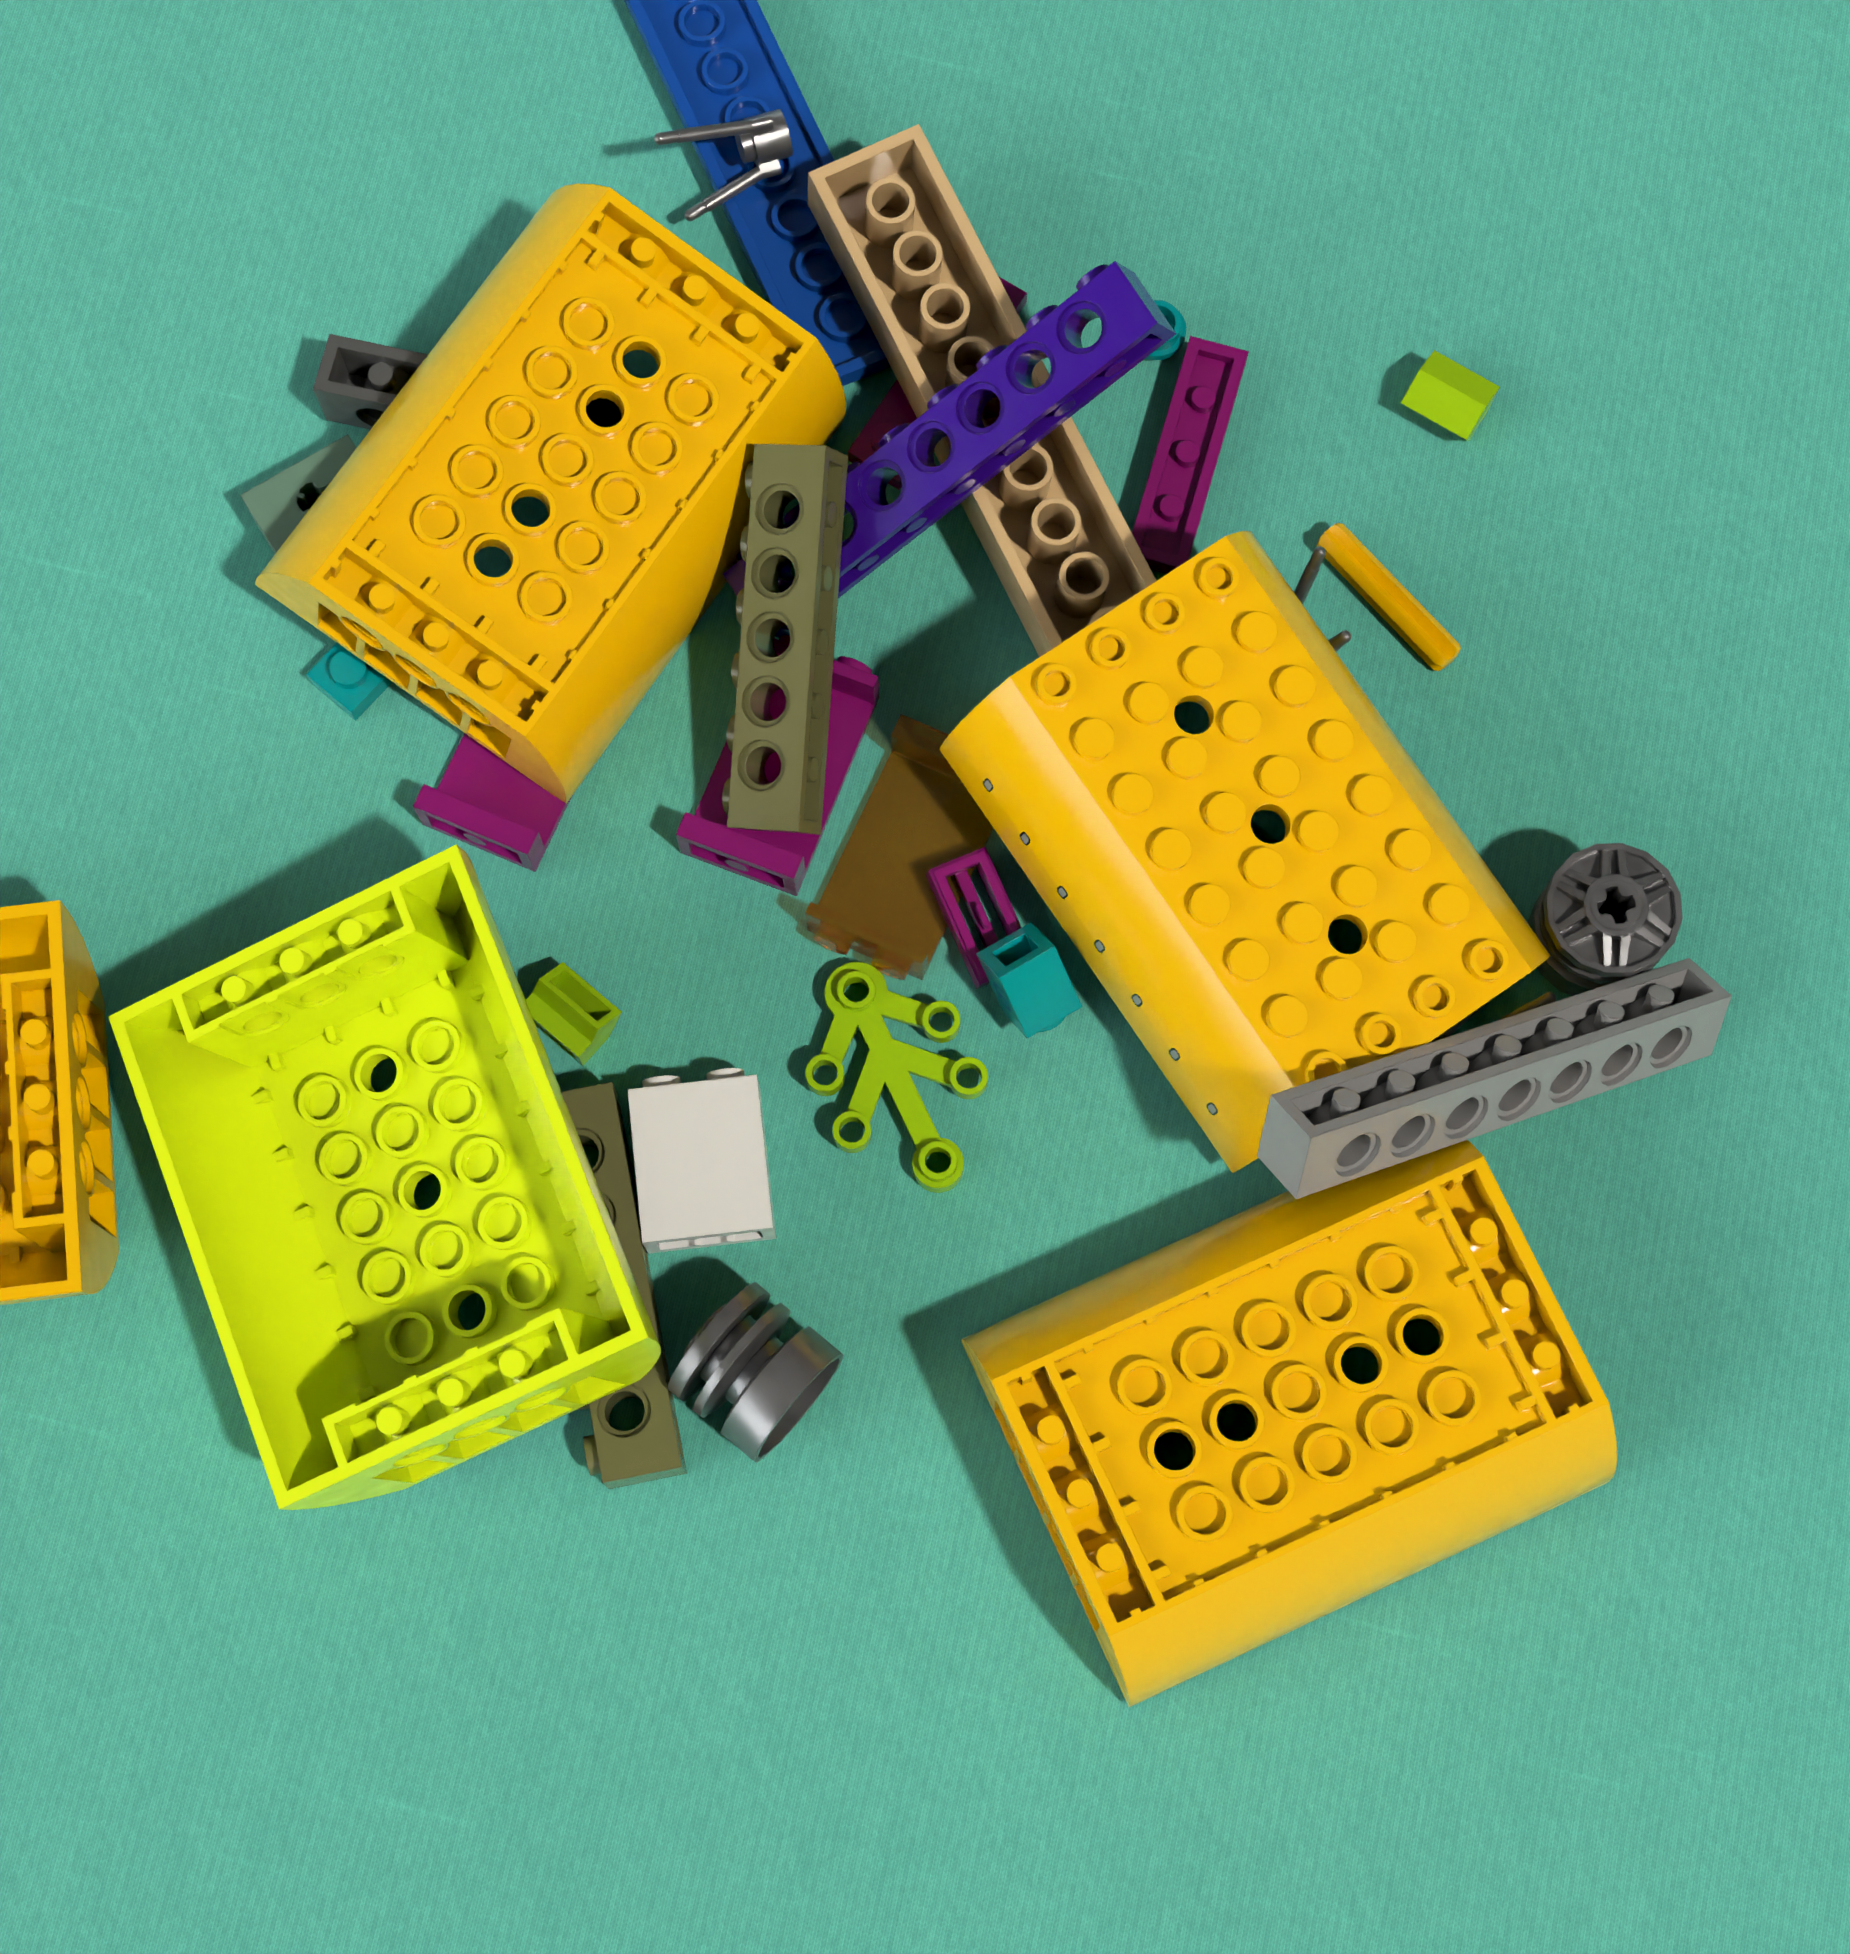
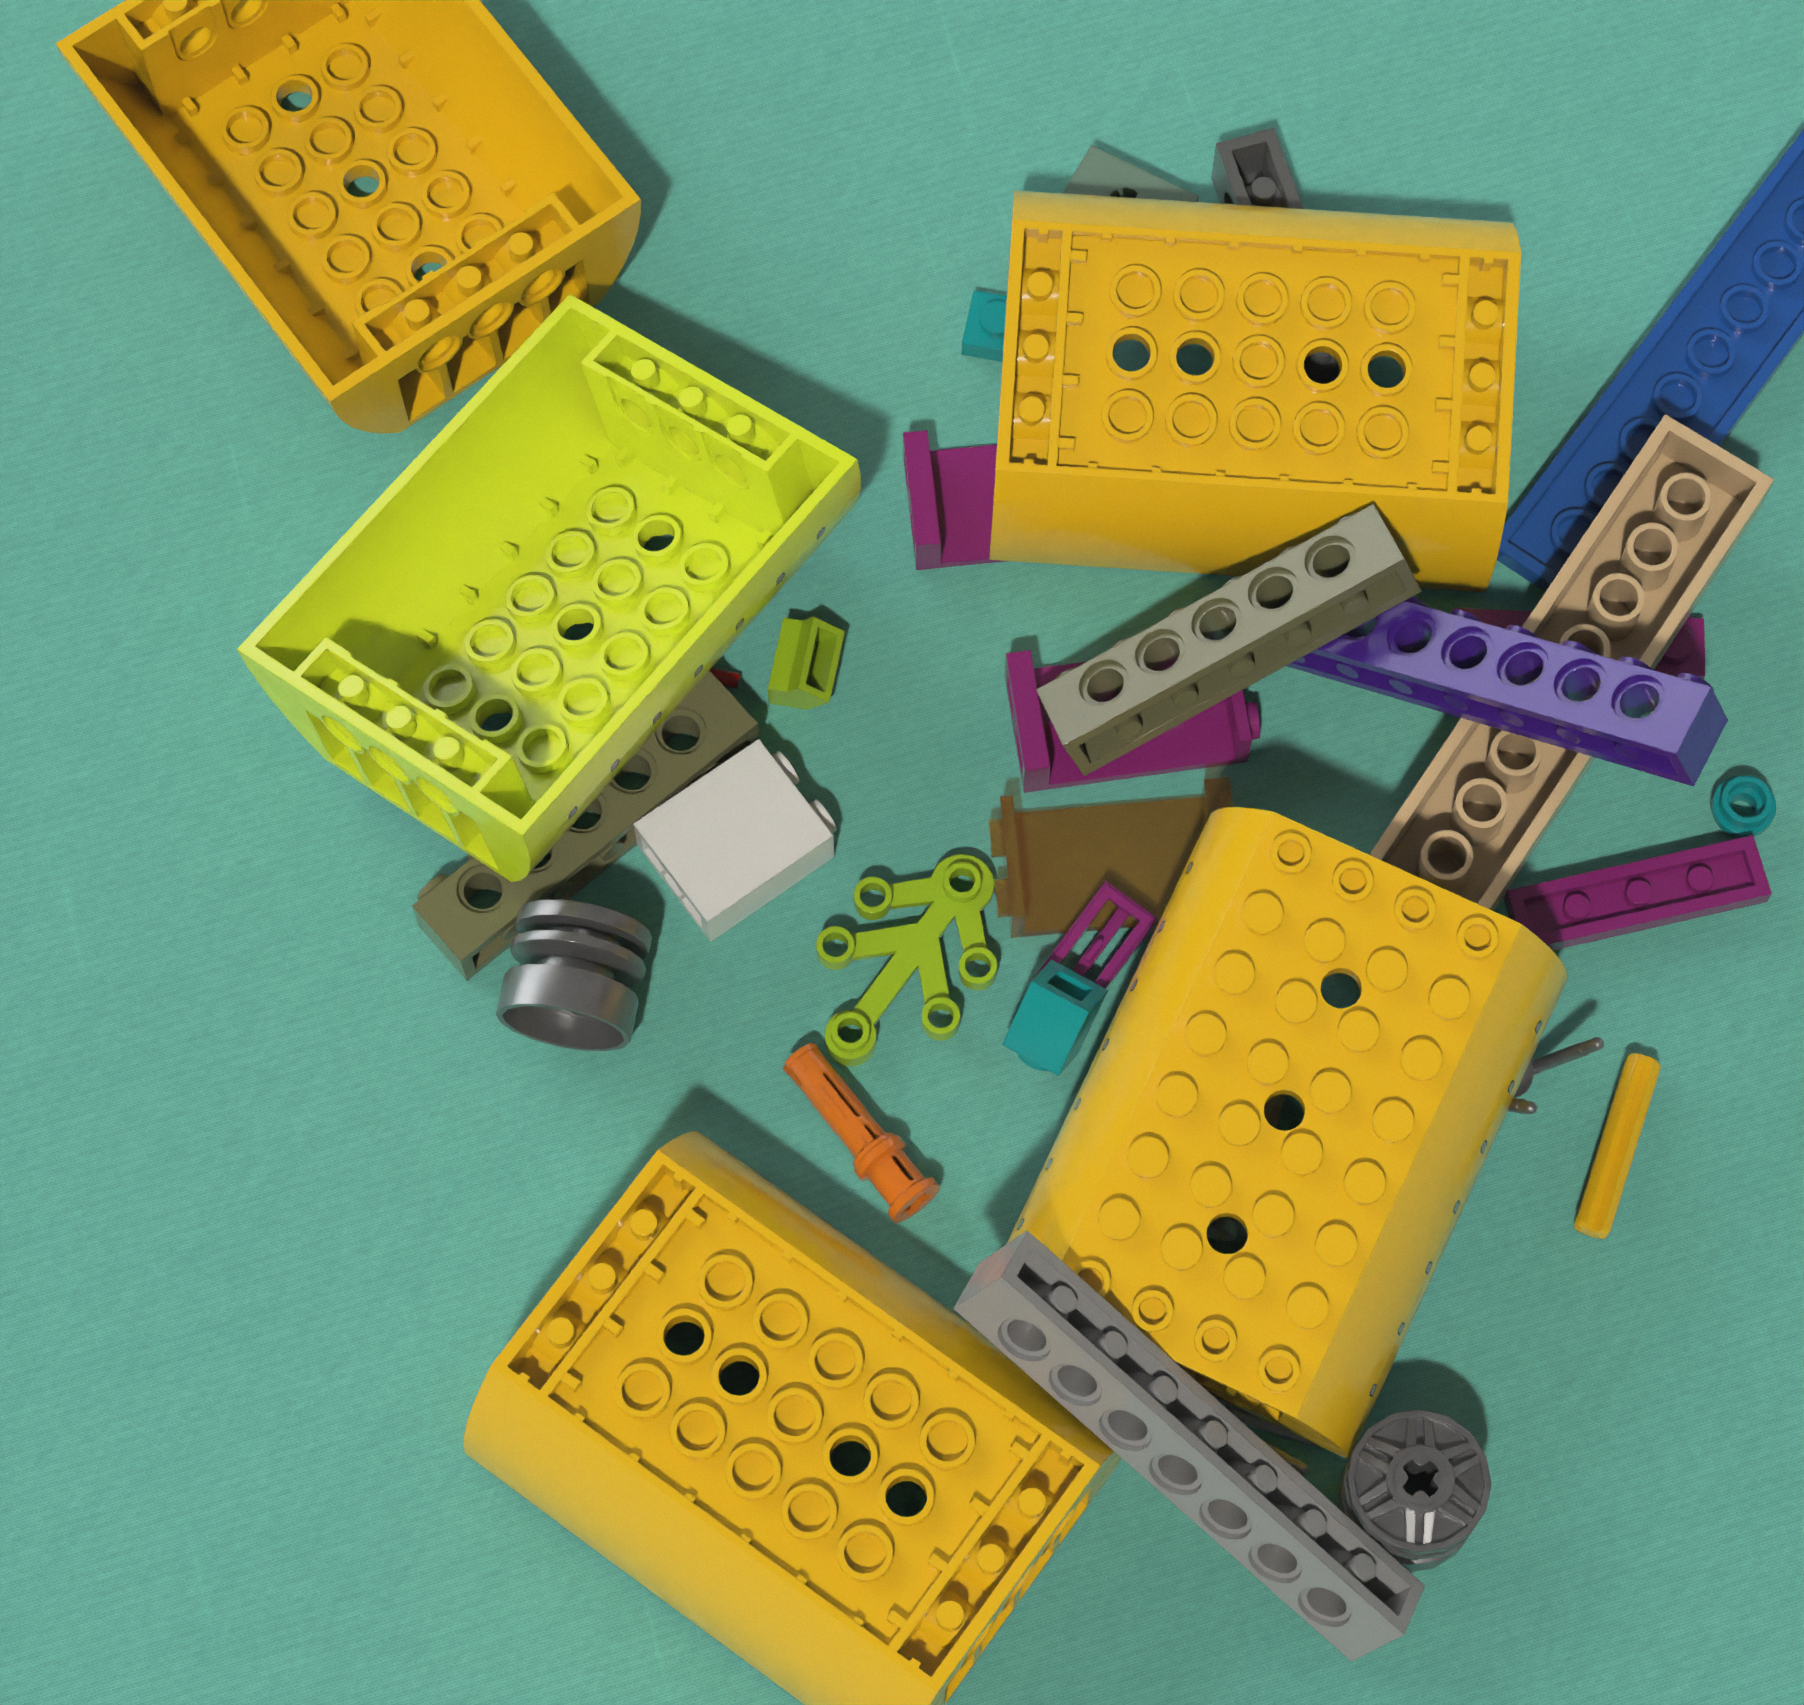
camera: 60 degrees right, 5 degrees down
(758, 139) = (1689, 367): flat silver plant -> none
(1060, 1199) = (876, 1153): none -> orange pin

